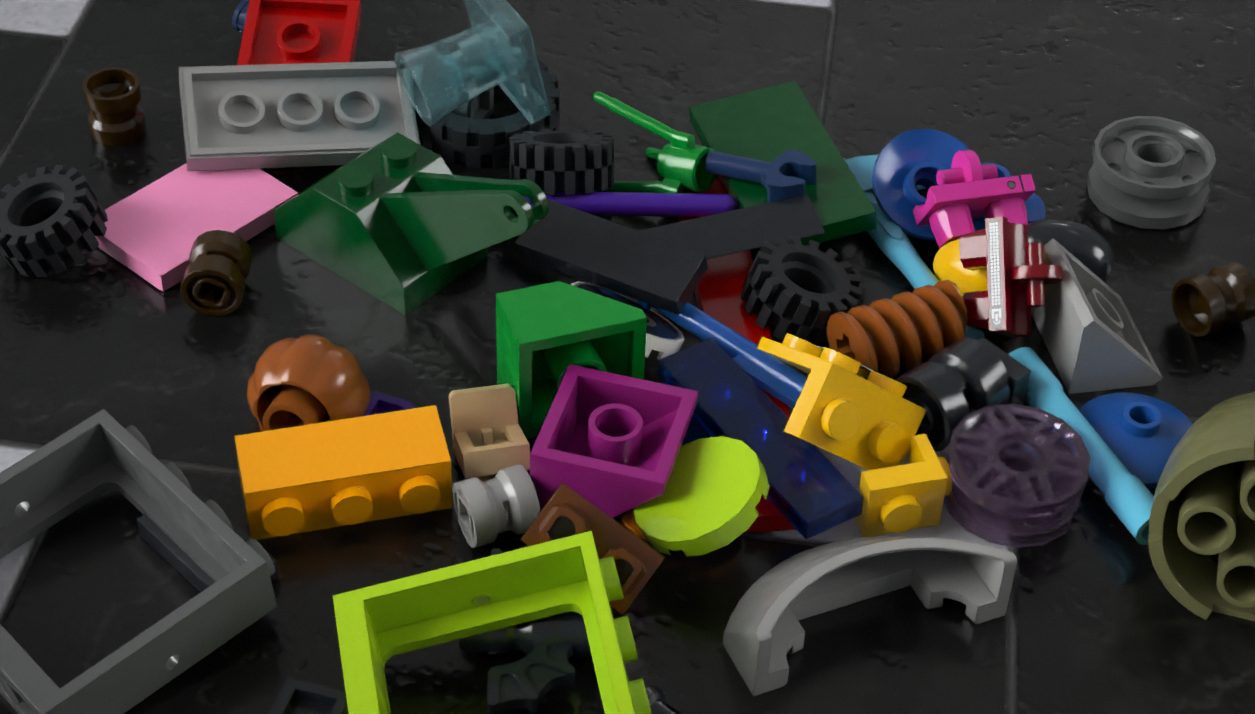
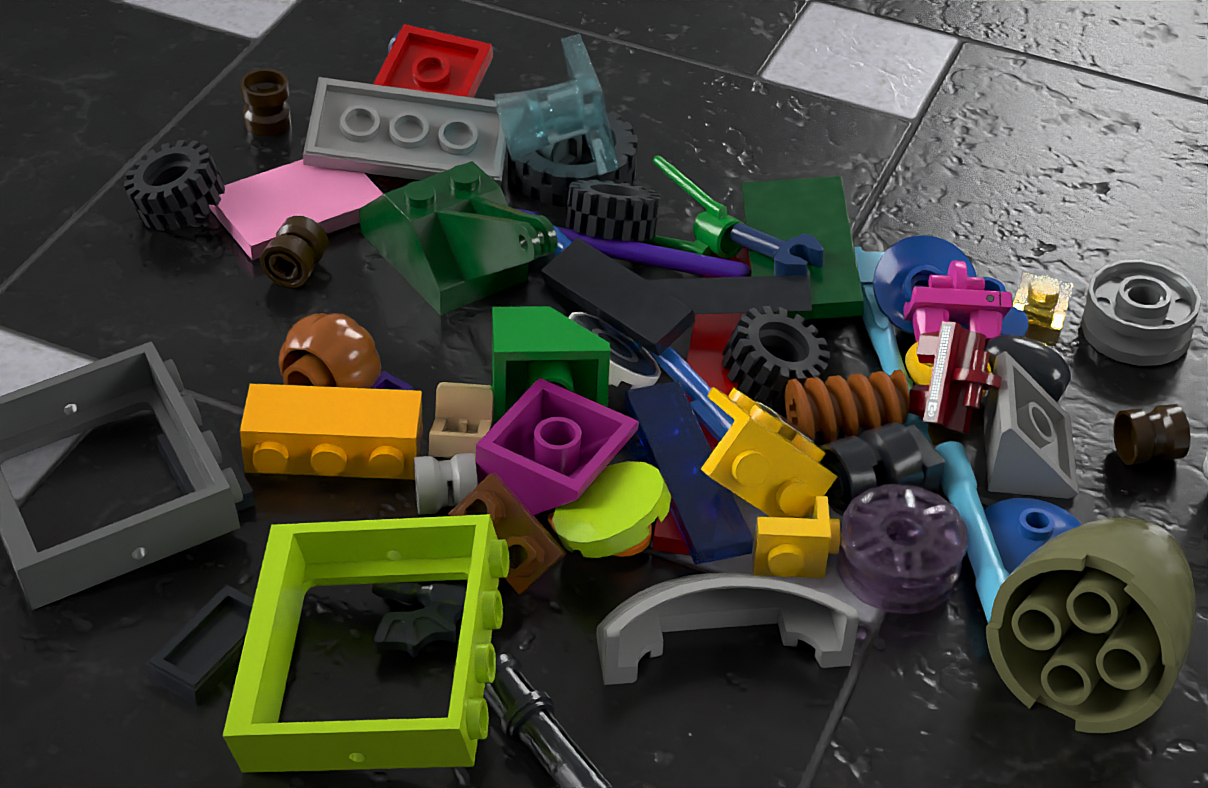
camera: 15 degrees right, 0 degrees up
(1050, 173) = (1043, 299): none -> clear yellow plate

